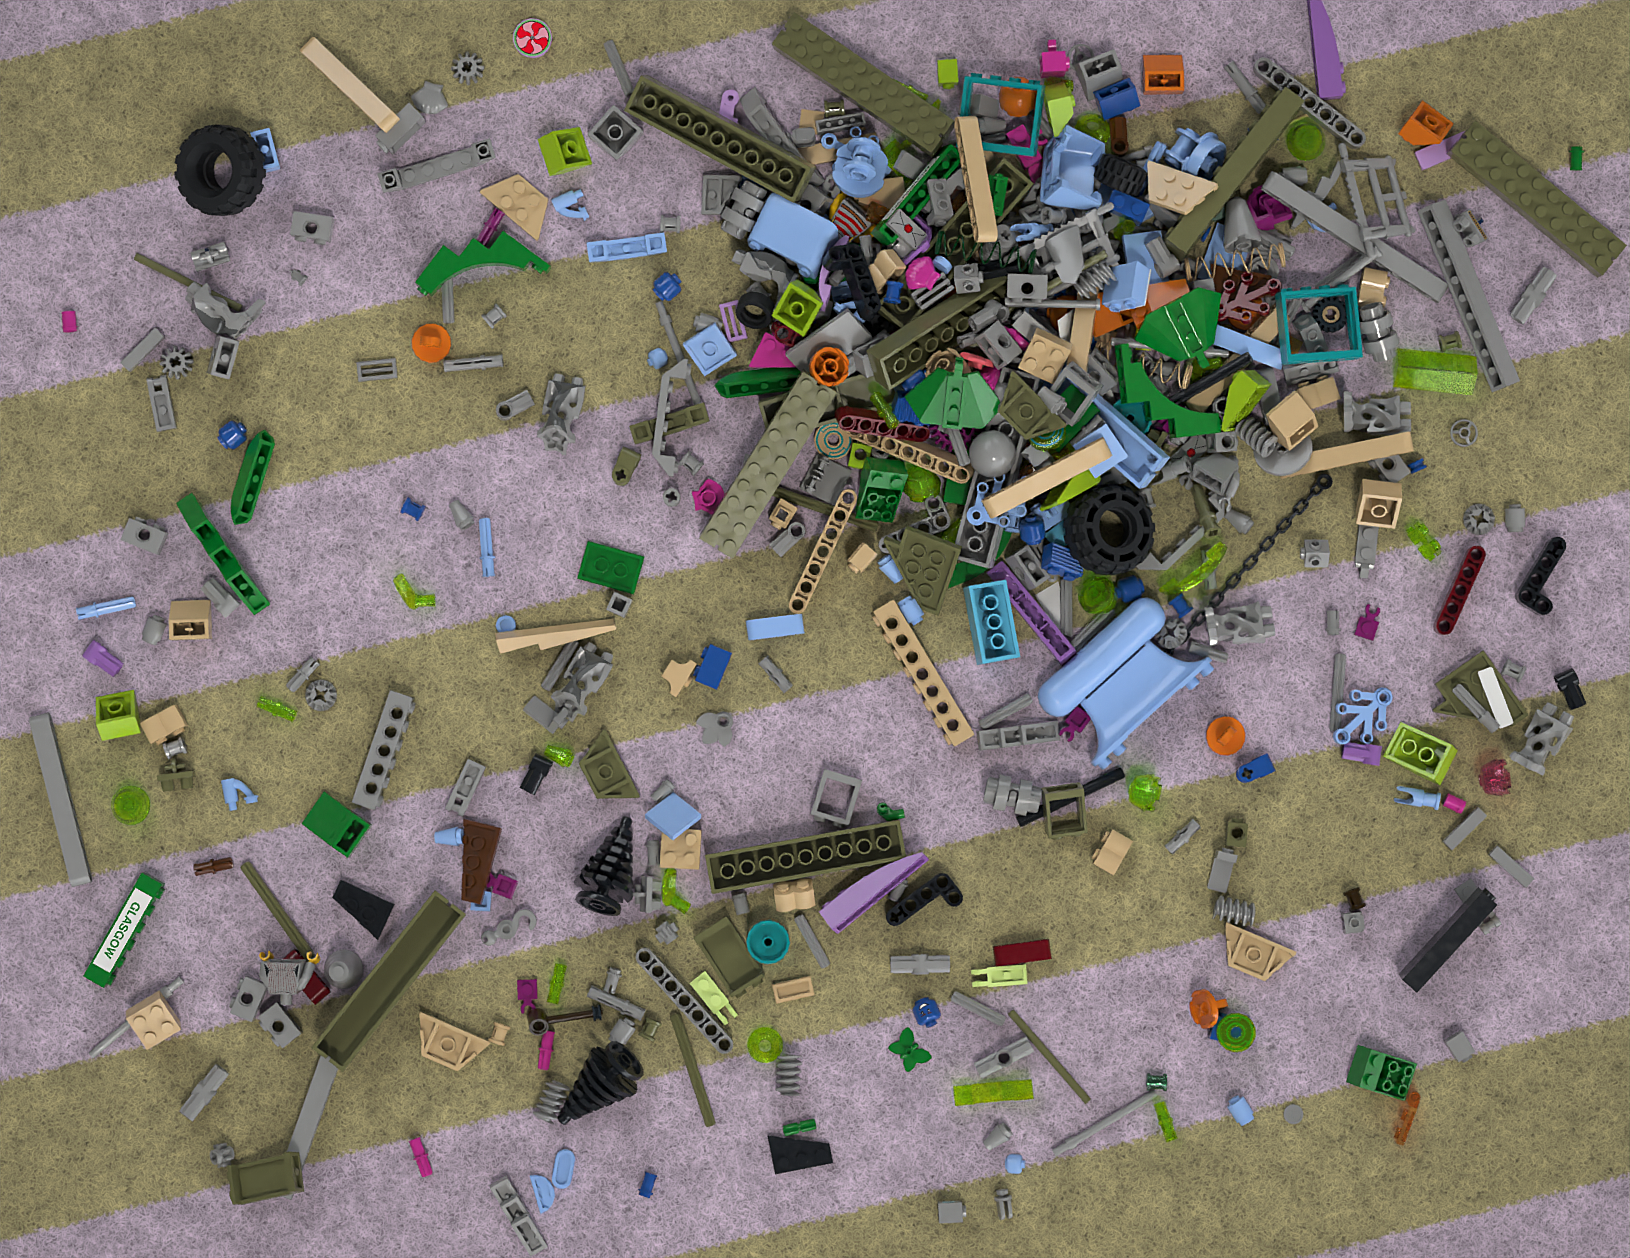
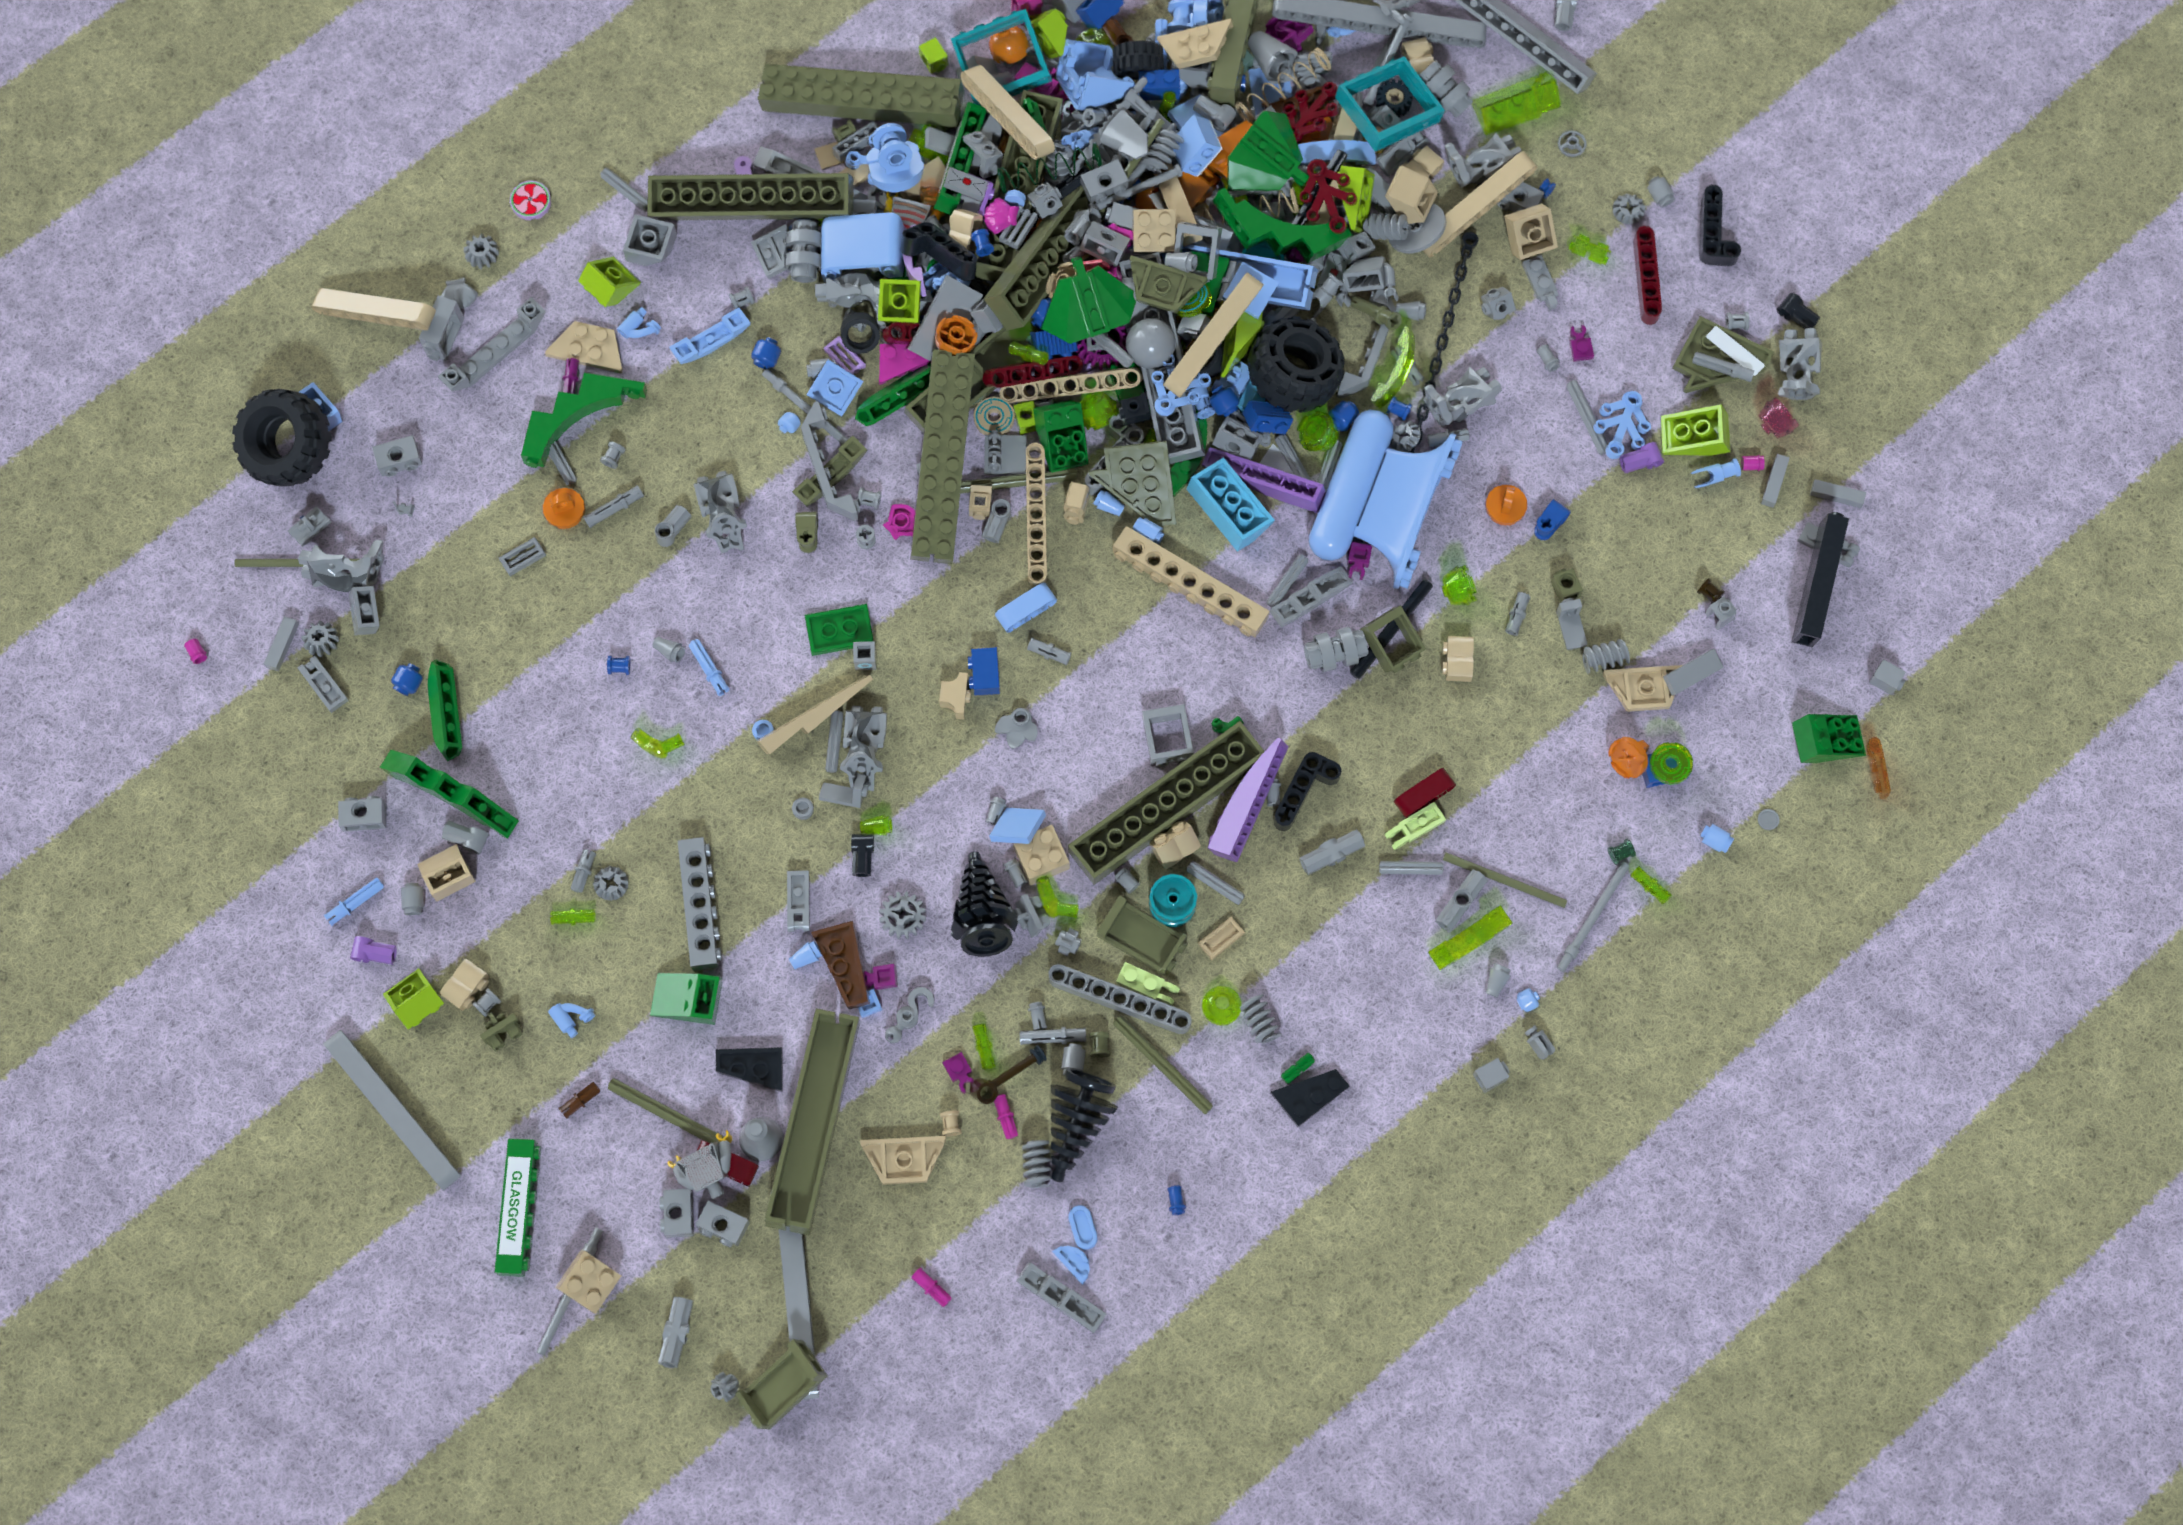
camera: 20 degrees left, 15 degrees down
(130, 805) = (466, 1080): clear neon green cone -> none
(506, 709) = (802, 808): none -> light grey tile
(537, 851) = (911, 916): none -> light grey gear
(606, 771) = (931, 818): olive wing -> none
(803, 137) = (829, 165): light grey arm -> none
(908, 1050) = (1366, 943): green piece -> none
(926, 1012) = (1363, 894): blue head -> none
(957, 506) = (1136, 415): none -> black brick
(1215, 388) = (1326, 193): none -> dark red plant
(1299, 961) = (1693, 672): none -> light grey tile
(1444, 341) = (1518, 66): olive bush -> none

